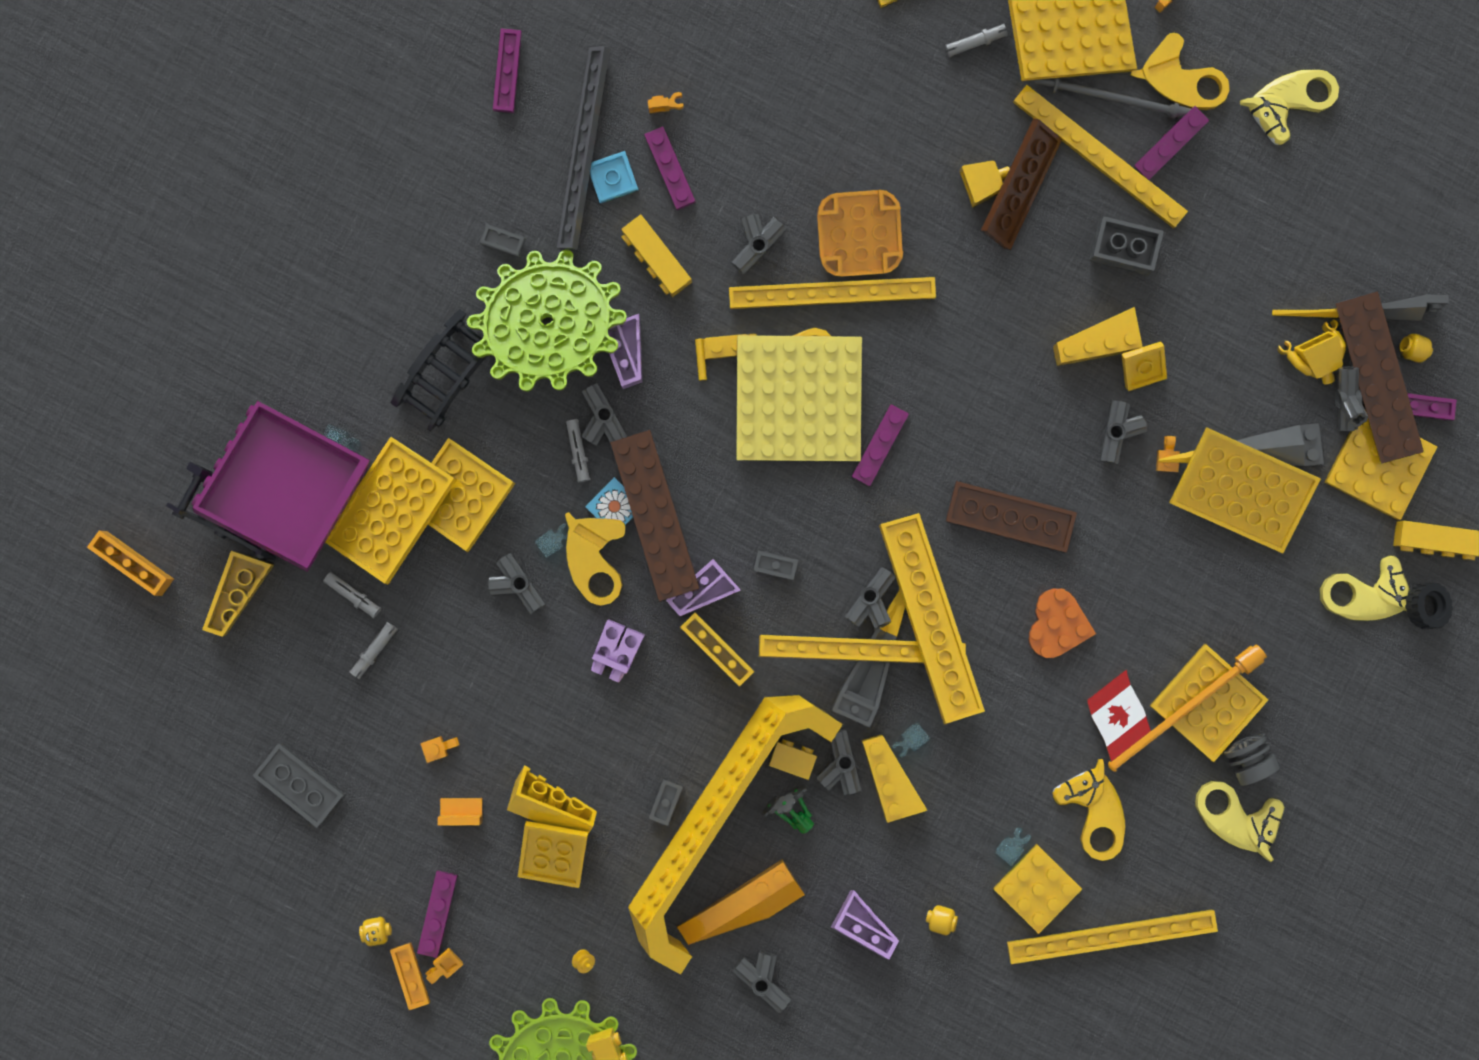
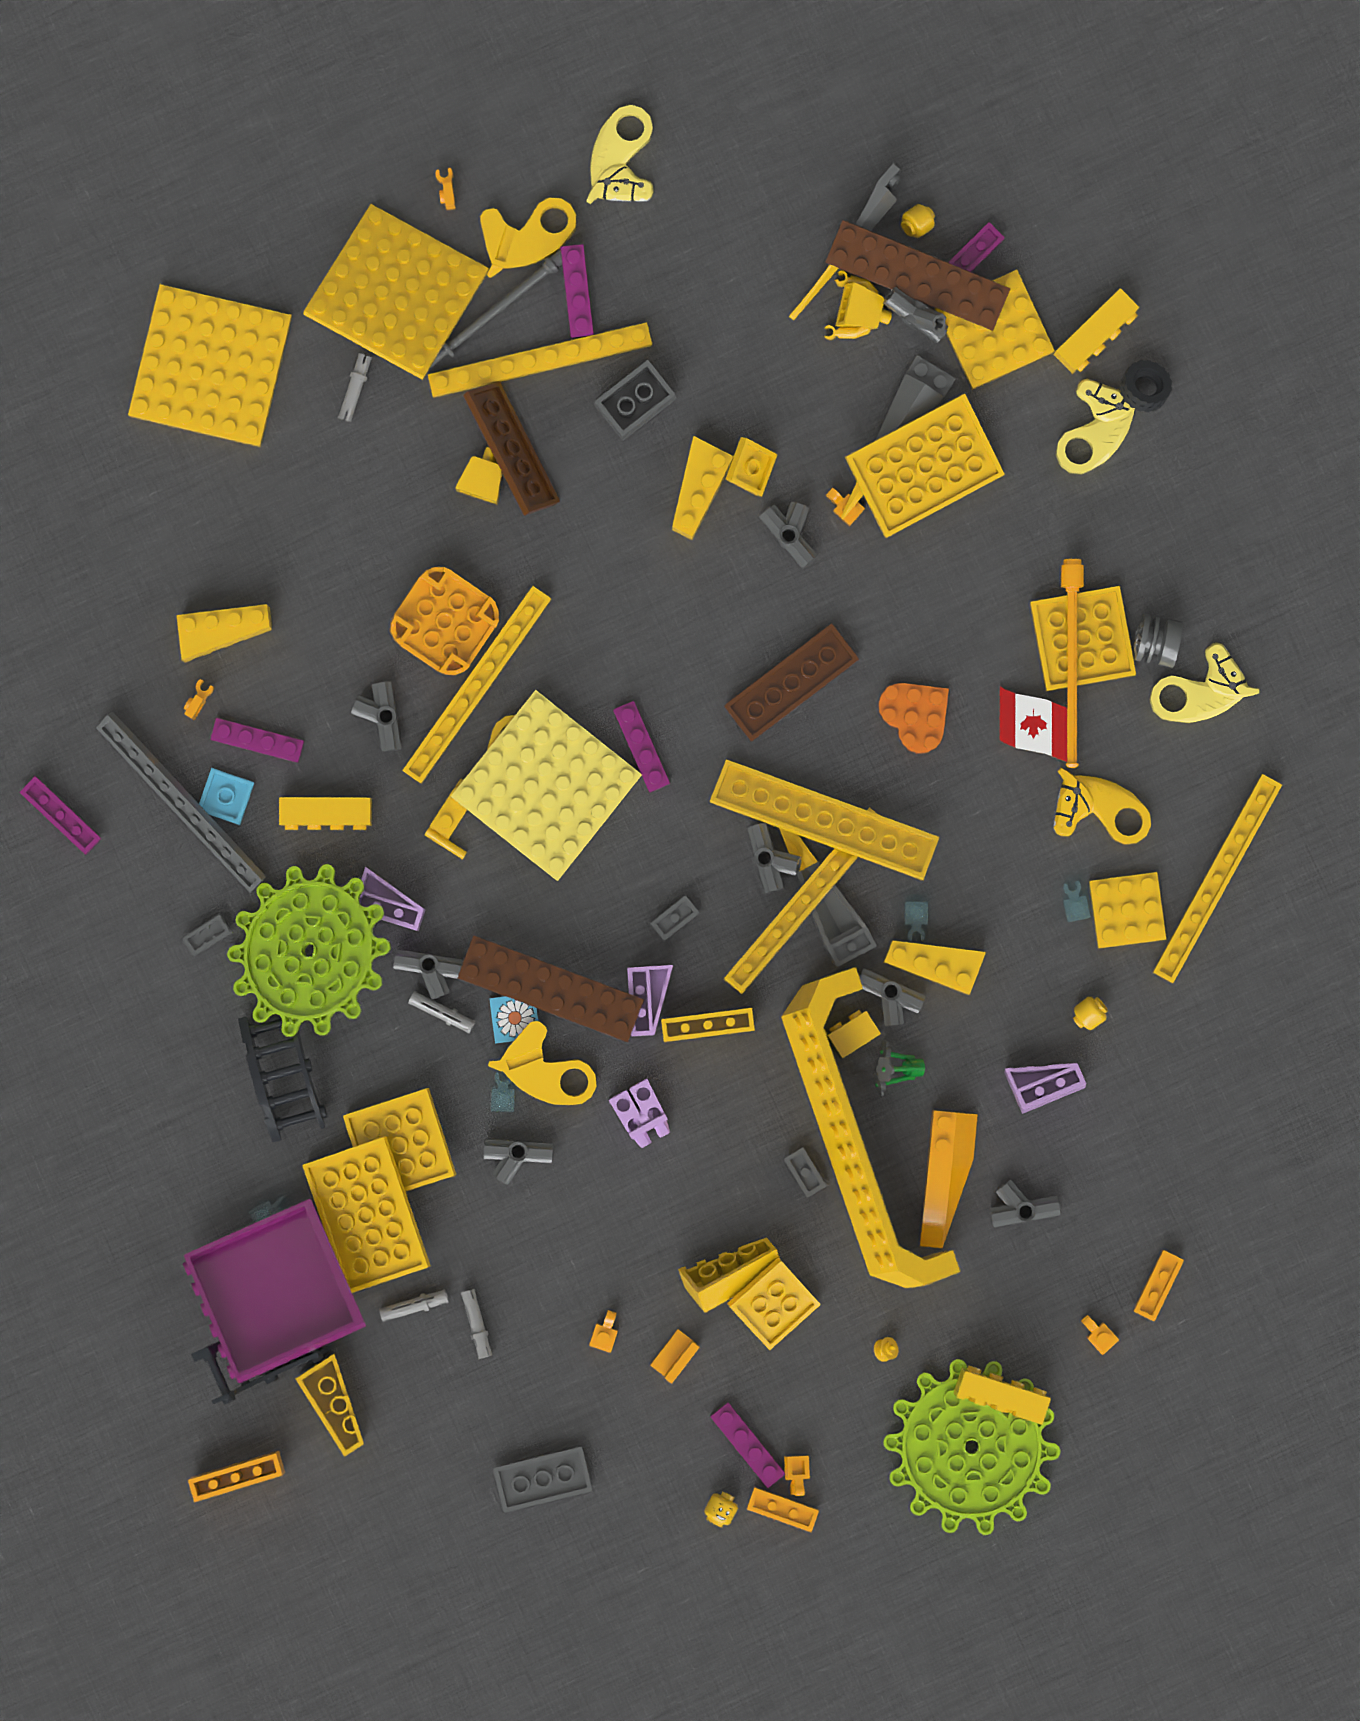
camera: 50 degrees left, 0 degrees up
(724, 75) = (213, 630): none -> yellow wedge

